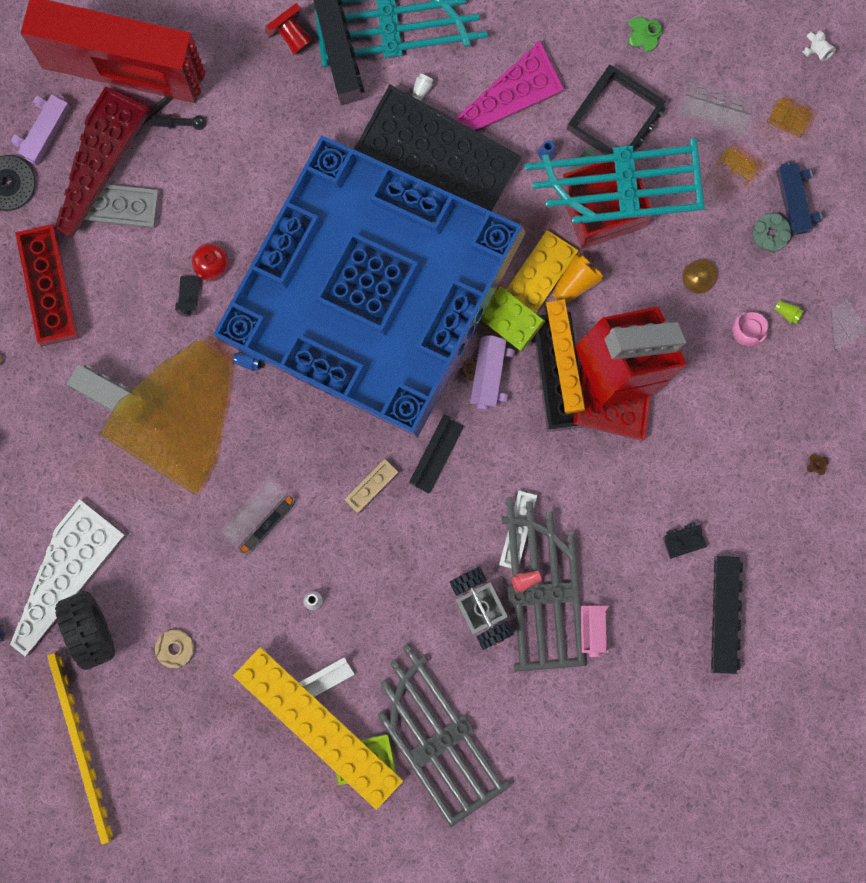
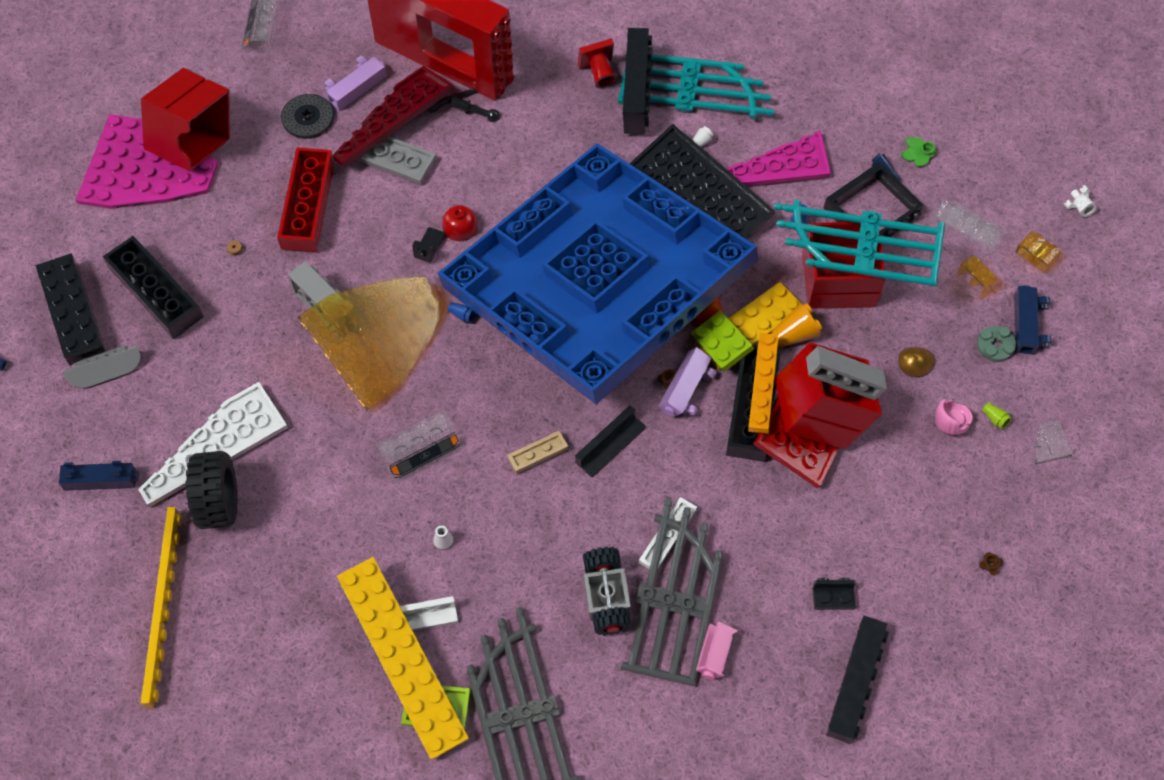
camera: 20 degrees right, 20 degrees down
(182, 657) = (294, 554): tan tile -> none
(525, 580) = (658, 578): coral cone -> none
(612, 59) = (885, 162): none -> dark blue cone

